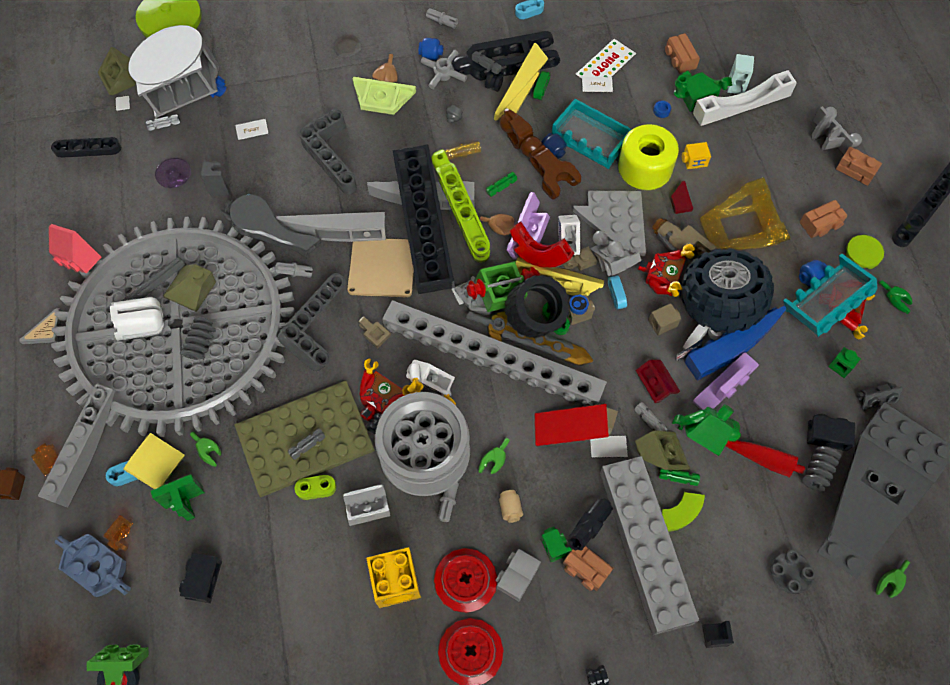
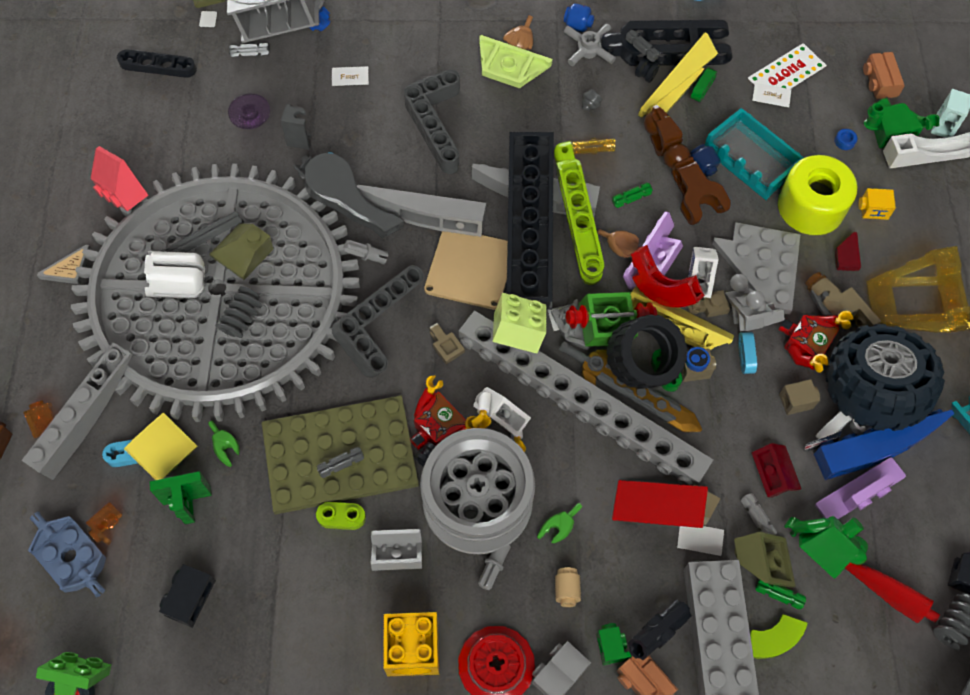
camera: 10 degrees right, 0 degrees up
(430, 303) = (519, 323): none -> yellowish green brick

